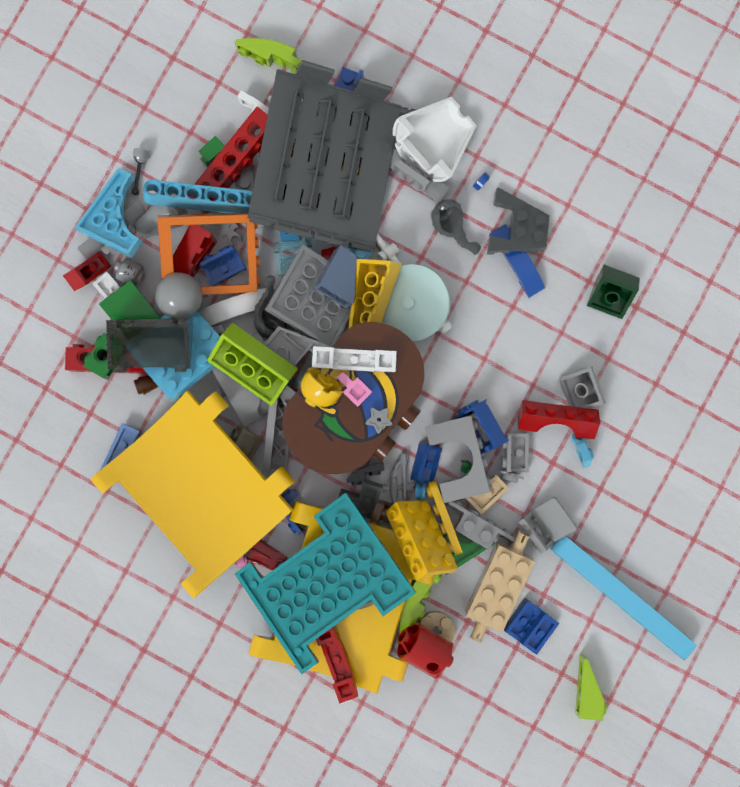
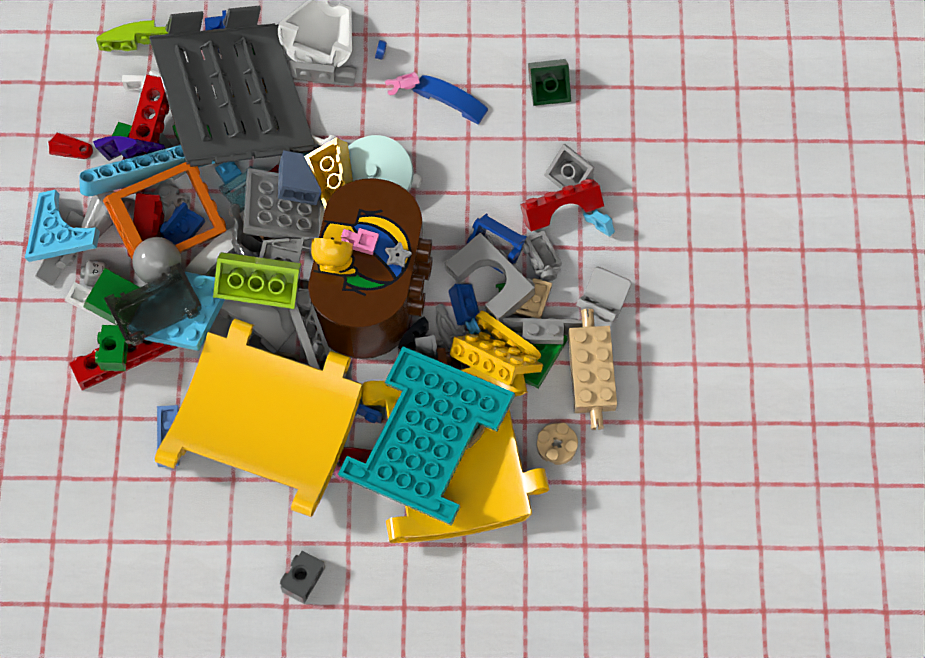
camera: 30 degrees left, 20 degrees down
(87, 271) = (54, 291): red slope -> none
(139, 156) = (55, 173): hinge -> none
(145, 385) = (162, 362): reddish brown cone -> none
(158, 645) = (297, 588): none -> dark grey brick
(165, 134) = (69, 147): none -> red piece
(205, 174) = (115, 146): none -> dark purple slope
(339, 665) = (478, 506): red slope -> none
(354, 359) = (350, 218): white slope -> none
(413, 607) = (523, 425): lime slope -> none
(425, 649) = (546, 447): red cylinder -> none
(448, 221) = (369, 94): dark grey hair -> none
(486, 224) = (405, 81): none -> bright pink plate
(527, 226) = (442, 66): dark grey wing -> none
(531, 626) = (642, 394): blue slope -> none
(589, 698) = (731, 424): lime slope -> none
(623, 597) = (710, 325): medium azure beam -> none

